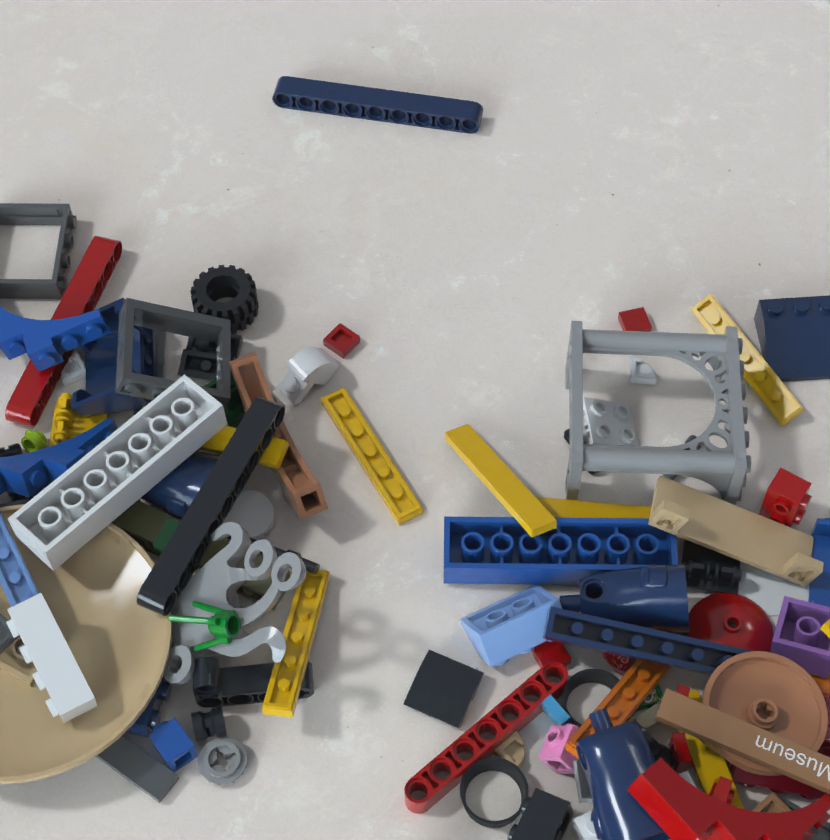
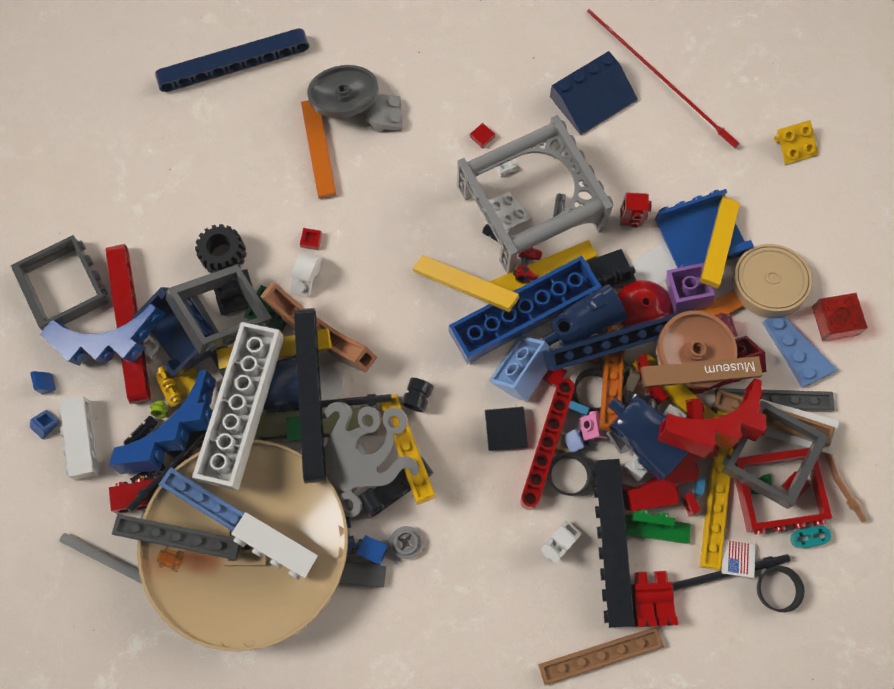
camera: 30 degrees left, 15 degrees up
(208, 724) = (385, 526): black wheel -> none
(223, 624) = (370, 470): green plant -> none
(356, 582) = (417, 395): none -> black wheel
(371, 456) = (375, 305): yellow tile -> none
(416, 245) = (318, 151): none -> orange tile
(486, 192) = (343, 91): none -> dark grey dish
(524, 240) = (385, 113): none -> light grey slope
(526, 753) = (575, 441): none -> slope
(605, 486) = (523, 272): none -> red piece
(734, 531) = (617, 245): tan bracket -> none
(756, 369) = (542, 117): yellow tile -> none

